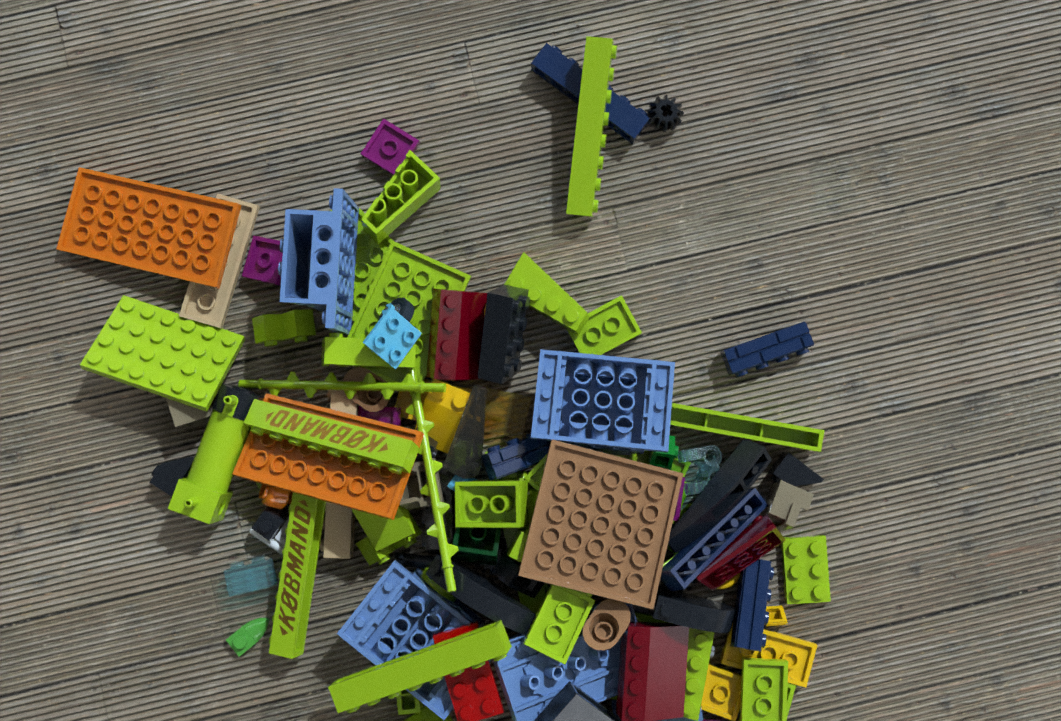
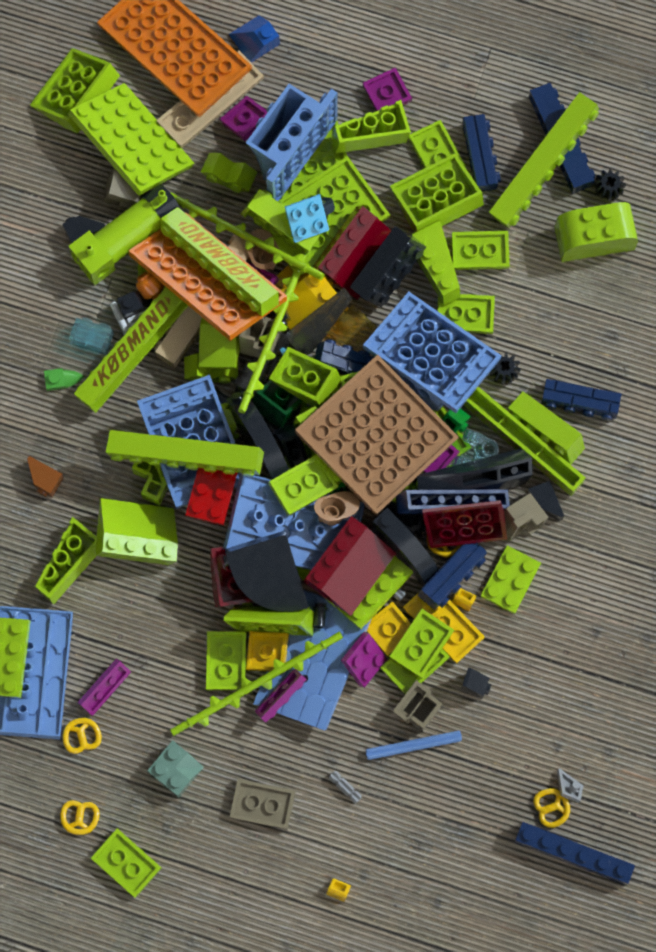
camera: 30 degrees right, 10 degrees down
(72, 327) = (73, 83): none -> lime slope
(226, 170) = (255, 38): none -> blue slope
(475, 180) = (432, 144): none -> lime tile
(503, 224) = (437, 193): none -> lime slope
(519, 156) = (480, 153): none -> dark blue brick
(579, 256) = (480, 250): none -> lime plate
(680, 357) = (508, 374): none -> black gear
(682, 171) = (595, 231): none -> lime brick
(751, 398) = (548, 427): none -> lime wedge
(836, 699) = (475, 684): none -> black slope

